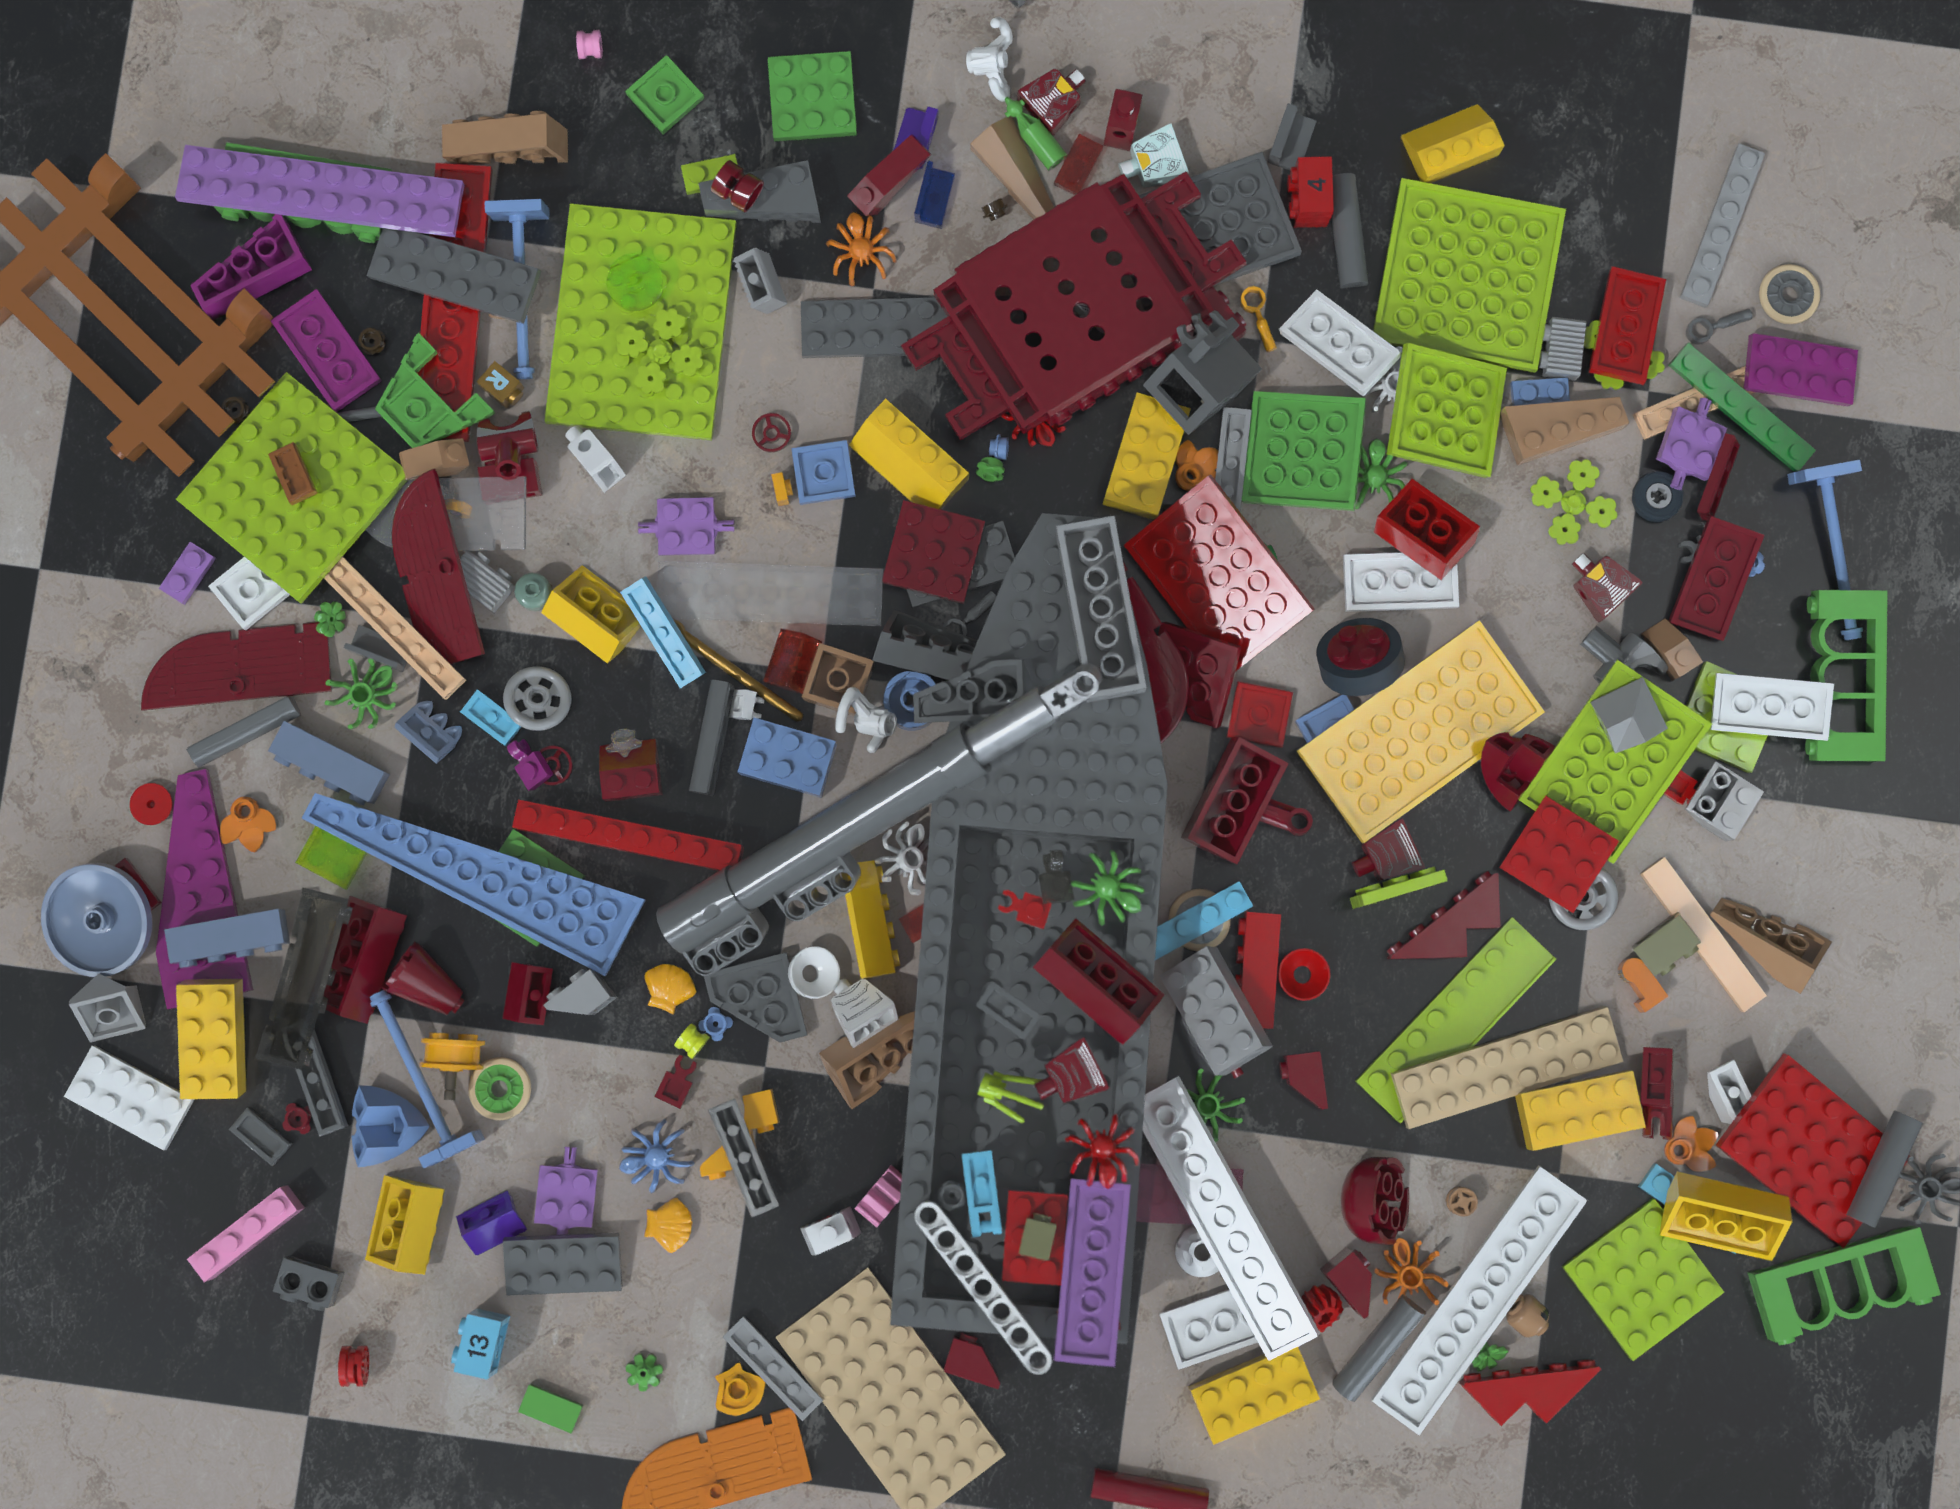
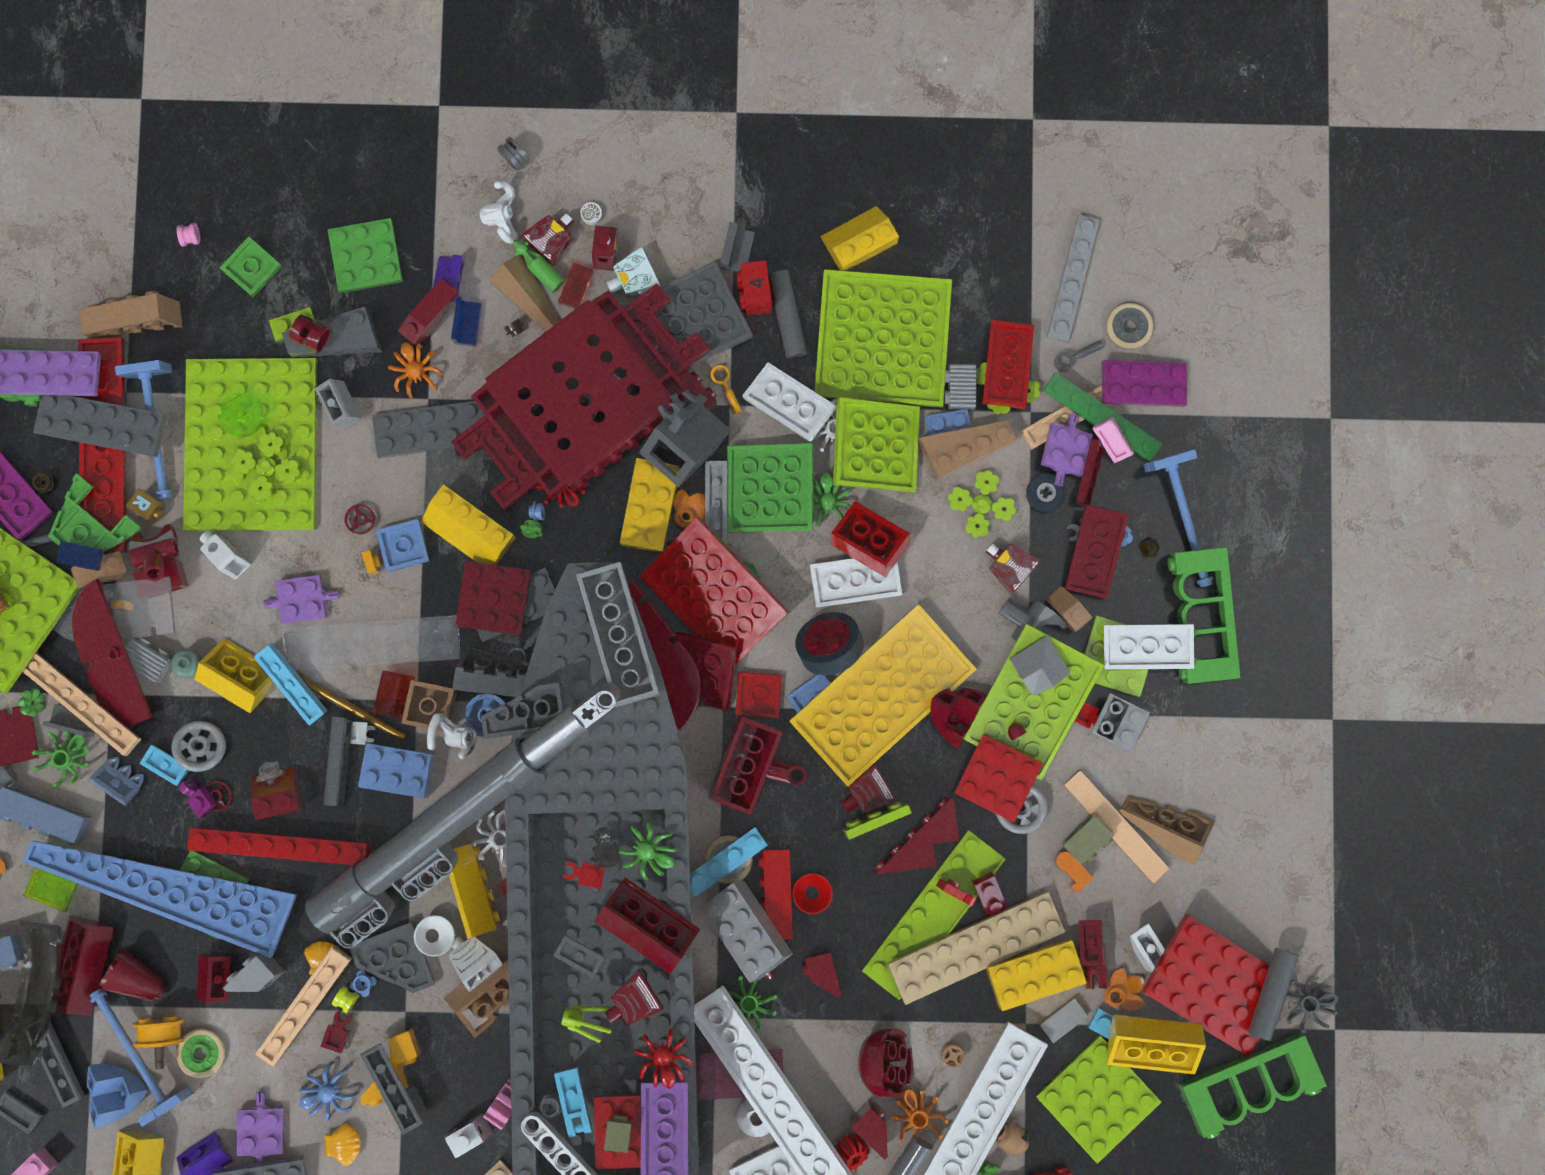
camera: 10 degrees left, 0 degrees up
(290, 1118) = (40, 1099): dark red plate -> none
(414, 437) = (80, 555): none -> clear blue tile
(637, 1043) = (303, 1006): none -> light nougat tile
(1108, 74) = (591, 213): none -> white tile
(1485, 988) = (952, 888): none -> red plate
(1531, 1001) = (989, 894): none -> plate
(1588, 795) = (1016, 730): none -> dark red hinge
(1608, 1174) = (1063, 1020): none -> light grey tile
(1753, 437) = (1113, 439): none -> bright pink tile
(1784, 581) = (1149, 547): none -> dark brown plate

